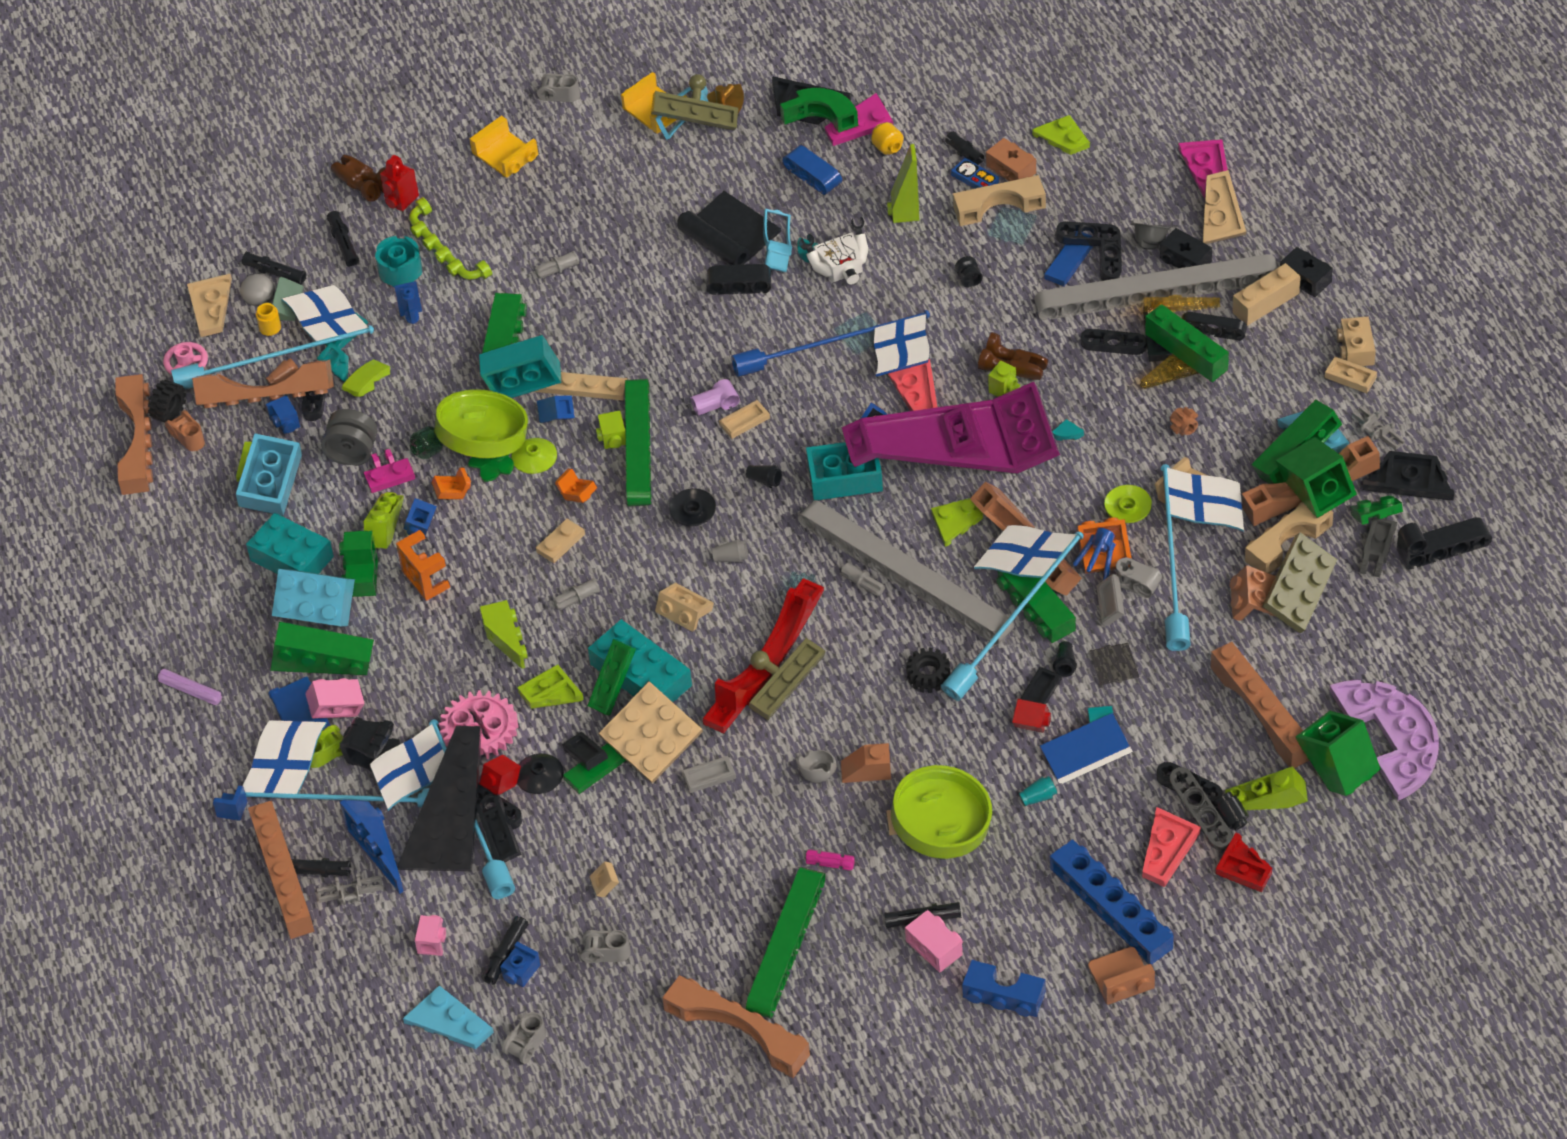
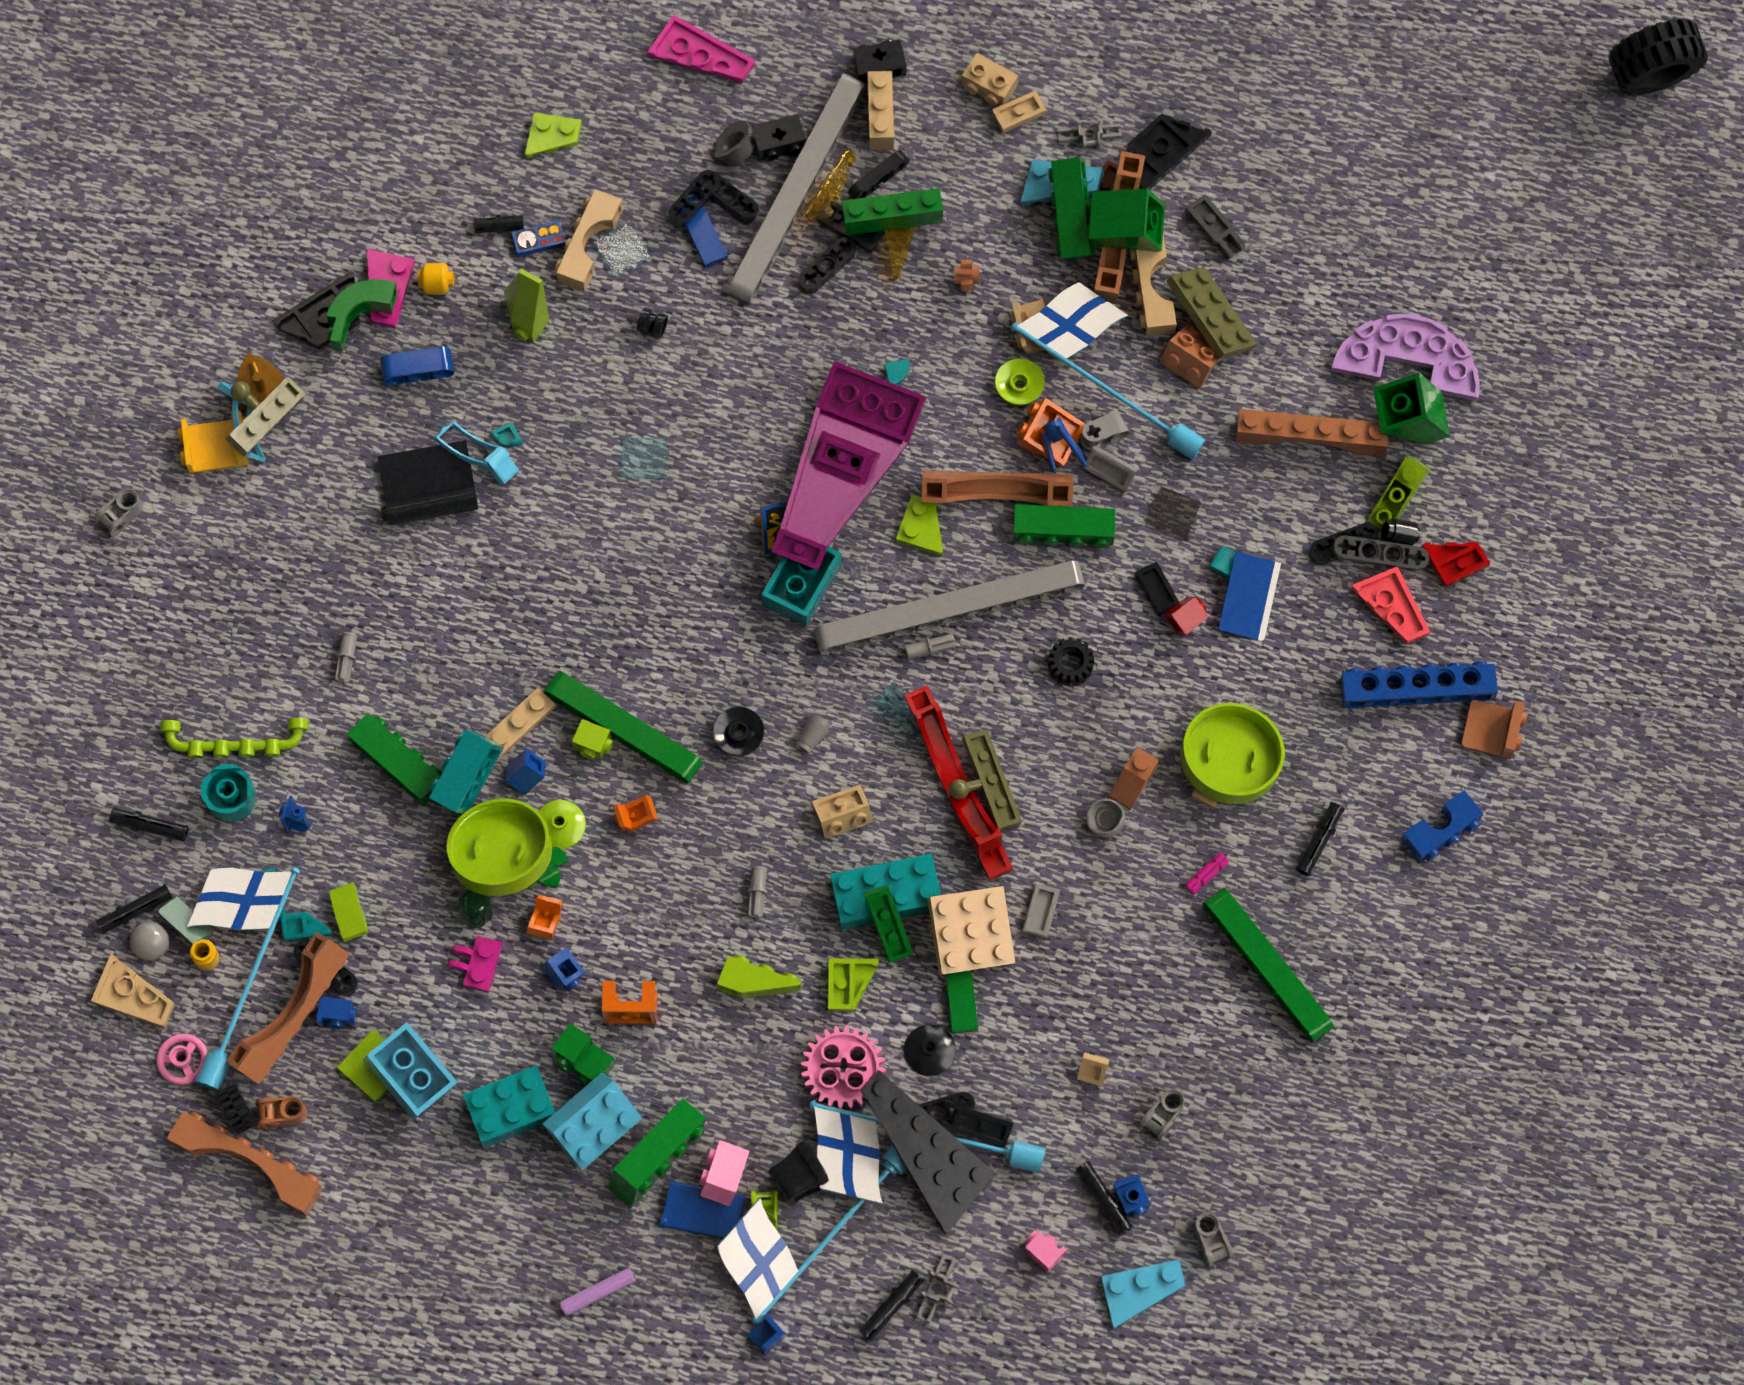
camera: 60 degrees left, 20 degrees up
(281, 869) = (877, 1333): nougat arch -> none
(282, 372) = (280, 981): nougat cone -> none
(349, 437) = (422, 972): dark grey wheel -> none
(359, 177) = (73, 758): reddish brown piece -> none
(368, 830) = (899, 1234): blue wedge -> none
(383, 518) = (536, 1002): lime slope -> none
(398, 184) = (134, 733): red hinge -> none
(499, 774) = (917, 1083): red brick -> none
(501, 148) = (157, 610): yellow panel -> none
(560, 540) = (681, 866): tan plate -> none
(585, 751) = (942, 997): black tile -> none
(692, 1002) = (1373, 1040): nougat arch -> none
(719, 396) = (625, 626): lavender piece -> none
(738, 278) = (498, 515): black beam -> none
(744, 419) = (665, 621): tan tile -> none
(765, 474) = (747, 647): black cone -> none
(840, 256) = (545, 413): white torso -> none
(896, 345) = (683, 435): flag -> none
(916, 386) = (749, 457): coral wing -> none
(934, 940) = (1358, 848): bright pink brick -> none
(1002, 379) = (804, 383): lime brick -> none
(1010, 161) = (543, 207): nougat brick -> none
(1022, 553) = (1027, 499): flag -> none
(1027, 363) = (789, 353): reddish brown piece -> none
(1039, 791) = (1264, 663): teal cone -> none
(1065, 660) = (1145, 548): black cone -> none
(1221, 209) = (758, 75): tan wing -> none
(1381, 509) = (1182, 200): green wing -> none
(1442, 543) = (1253, 176): black beam -> none

